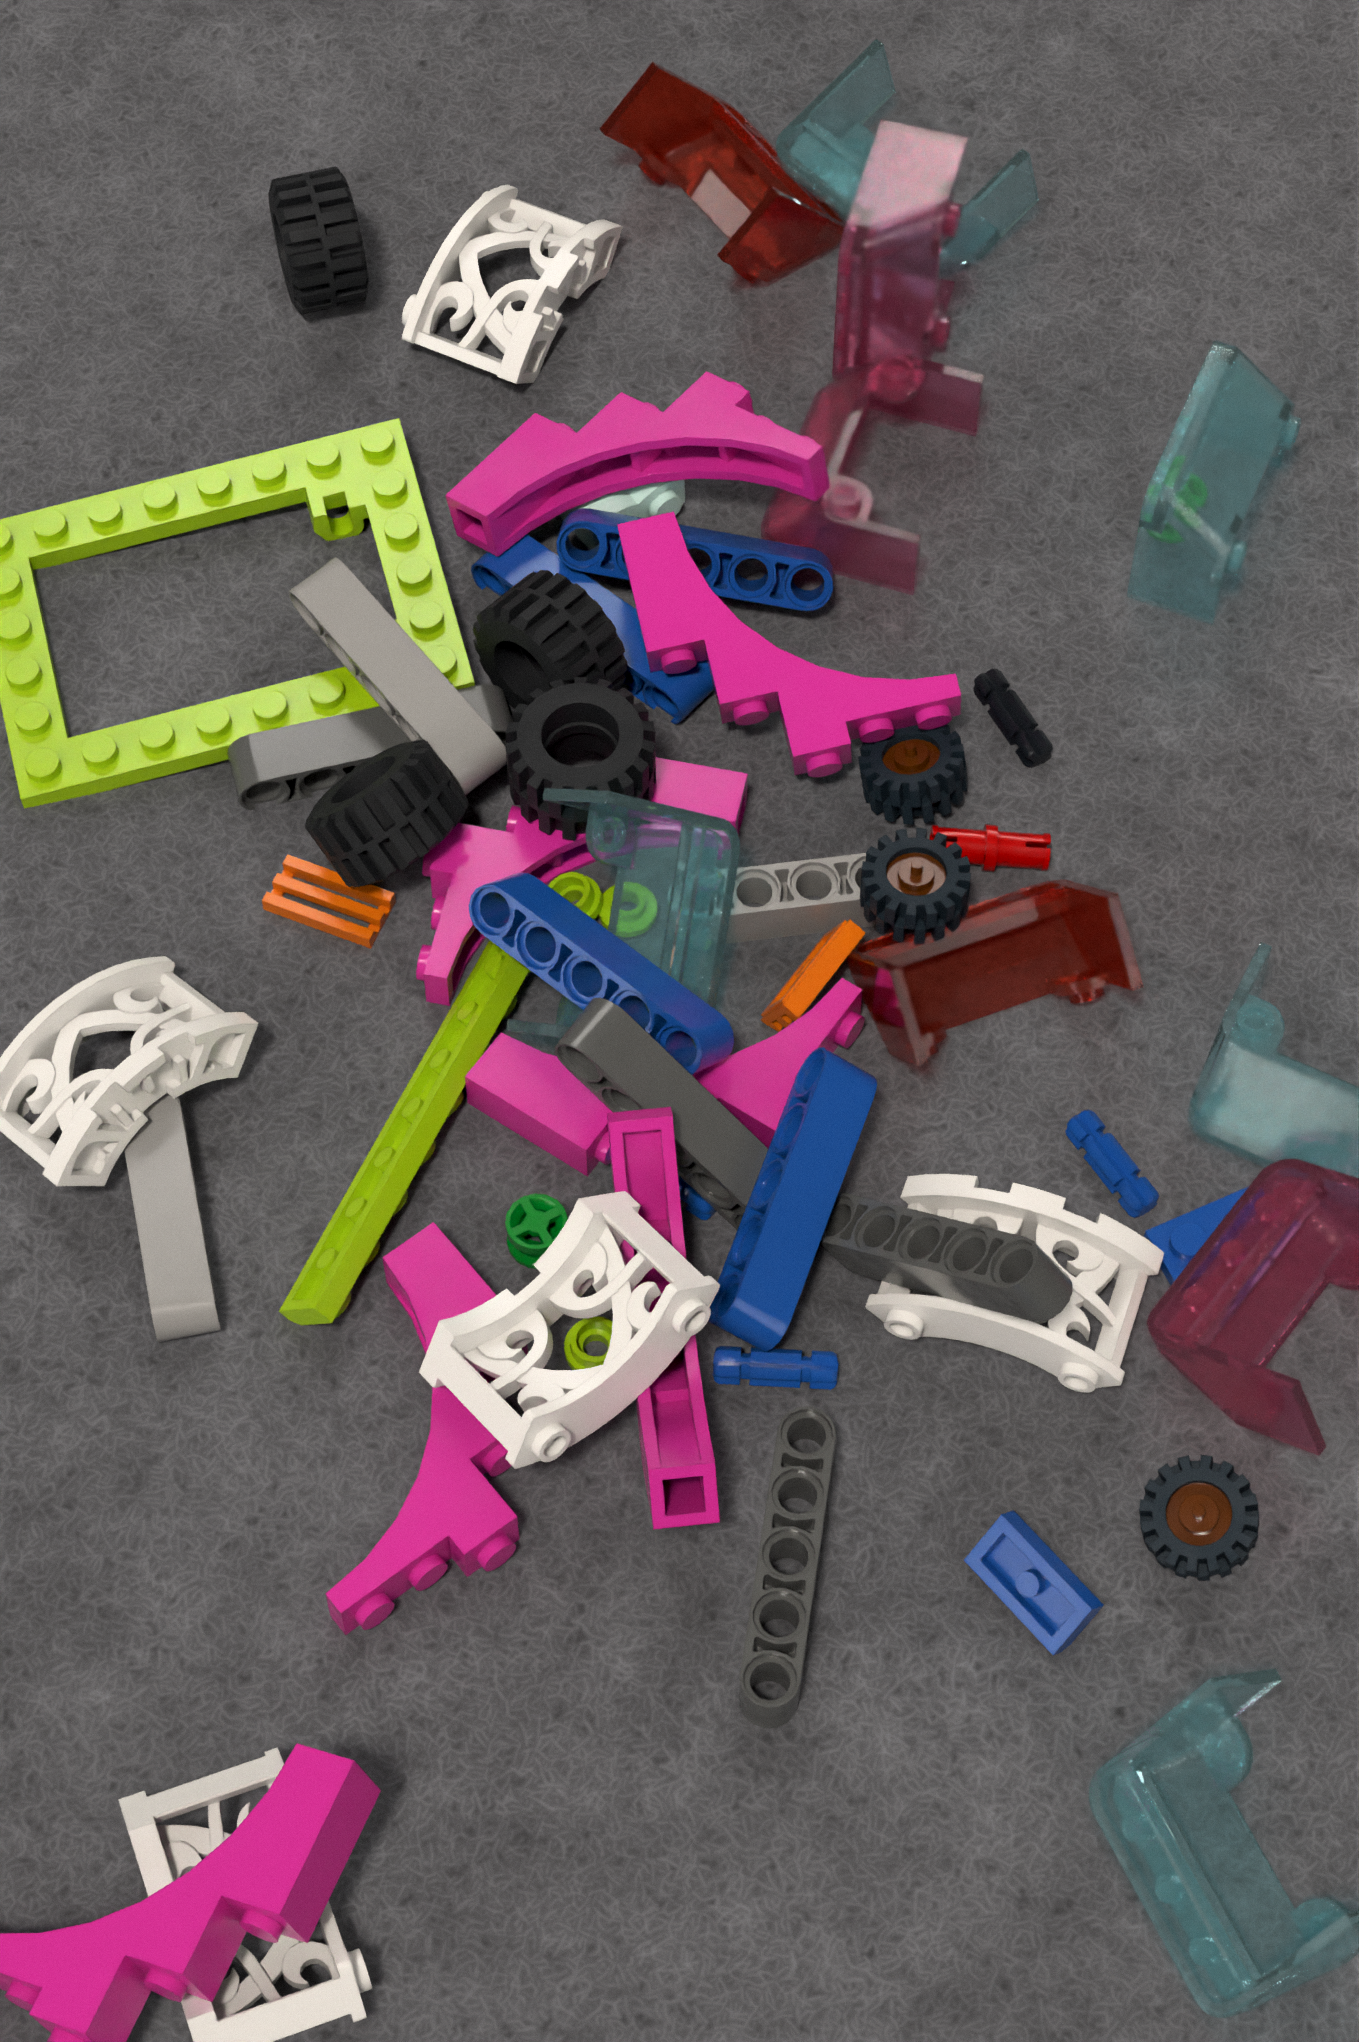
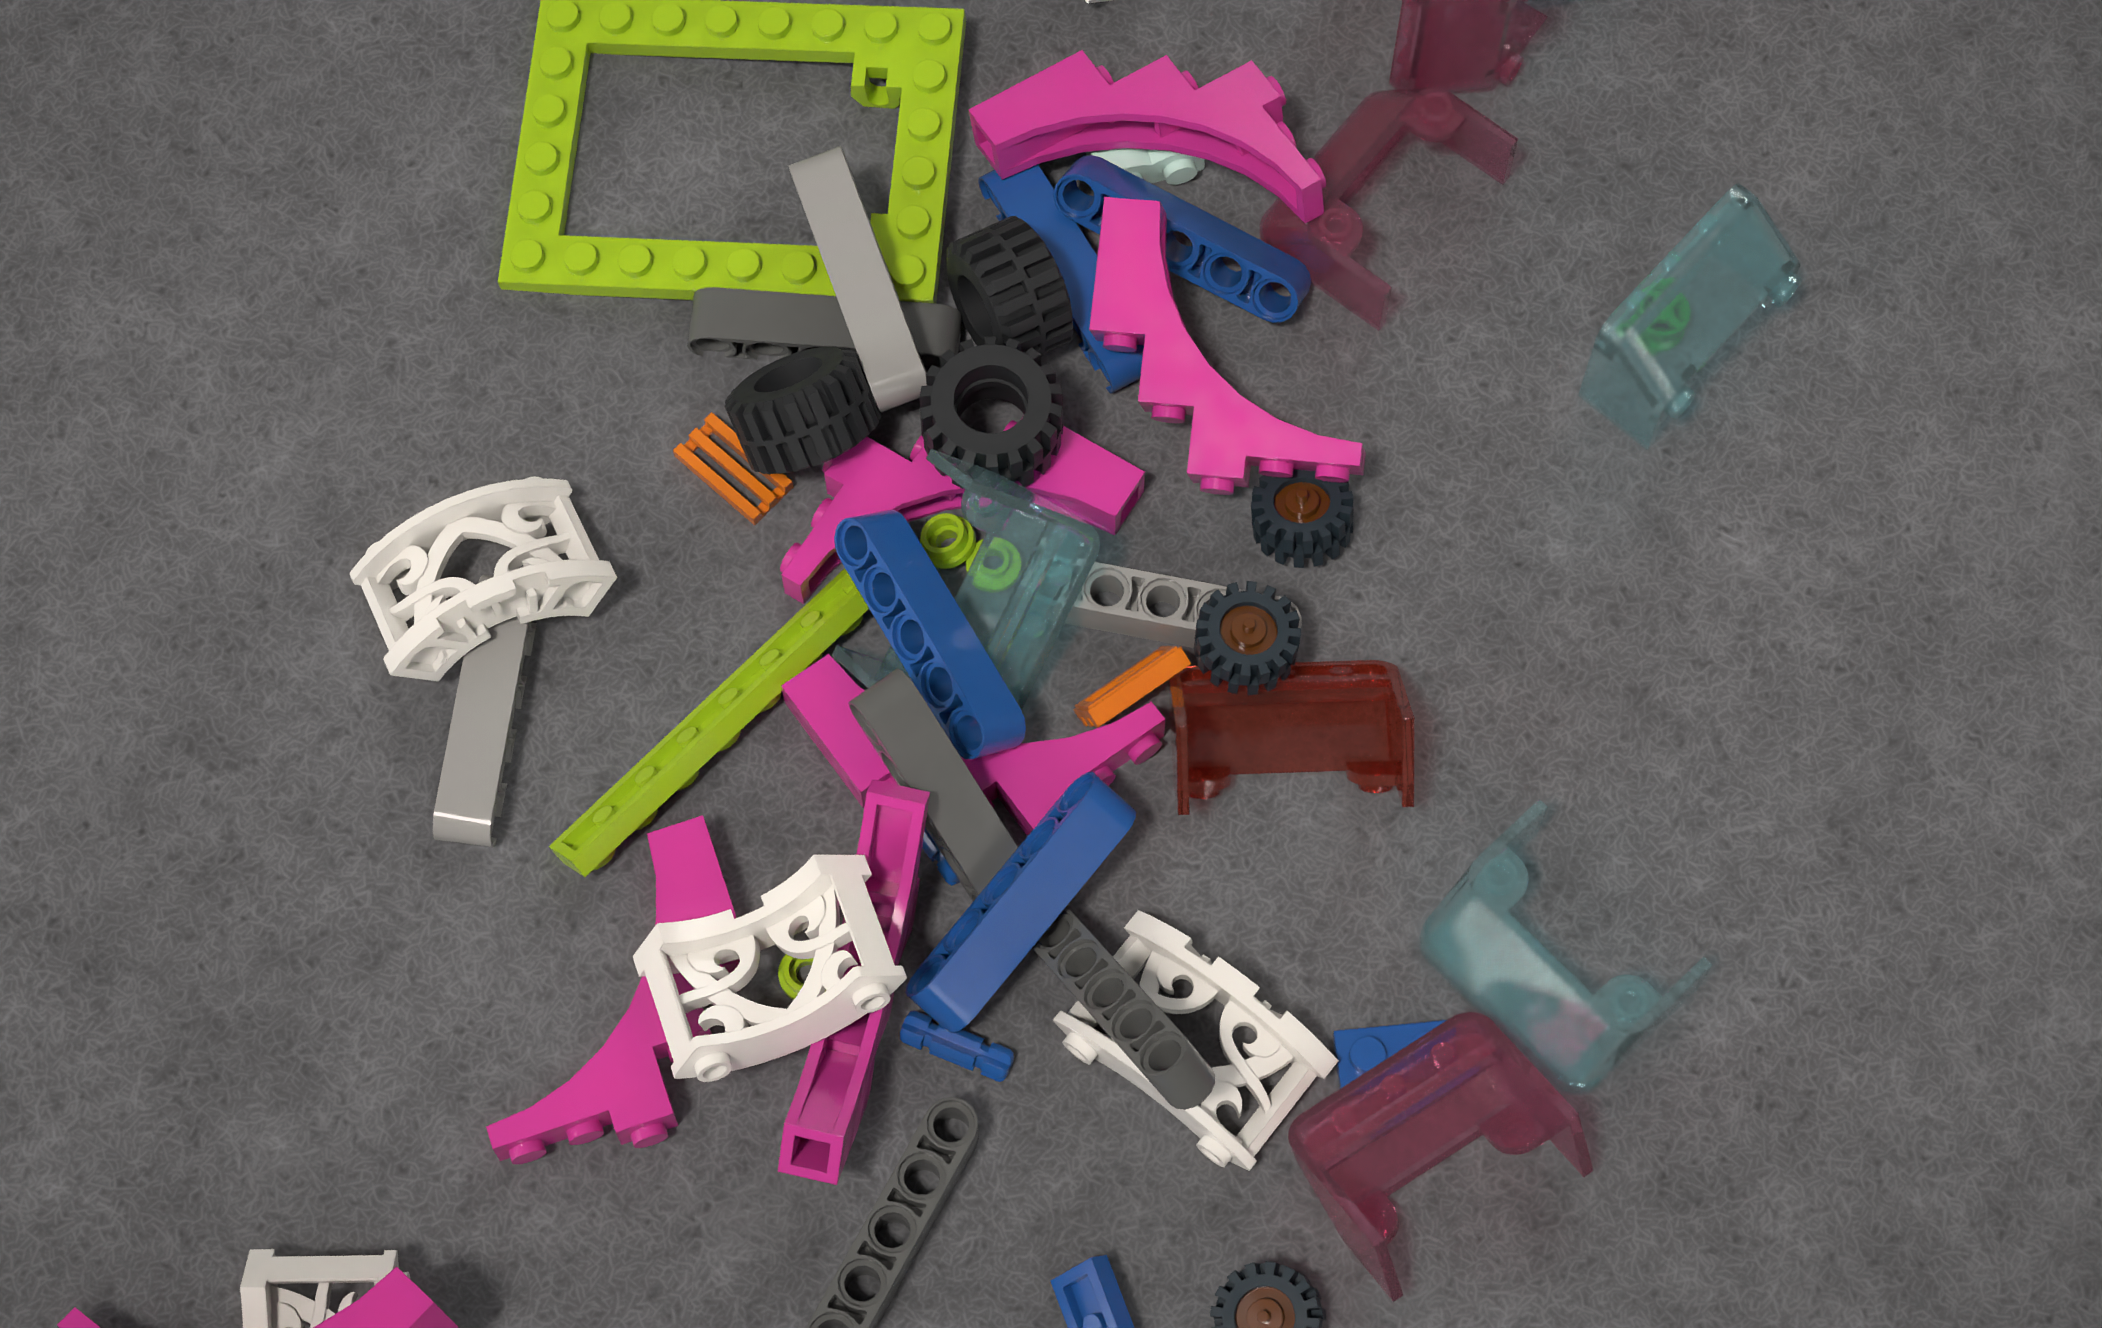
camera: 20 degrees right, 10 degrees up
(533, 1216) = (792, 837): green wheel -> none
(999, 848) = (1345, 611): red pin -> none
(1012, 718) = (1419, 487): black axle -> none
(1112, 1163) = (1332, 955): blue axle -> none

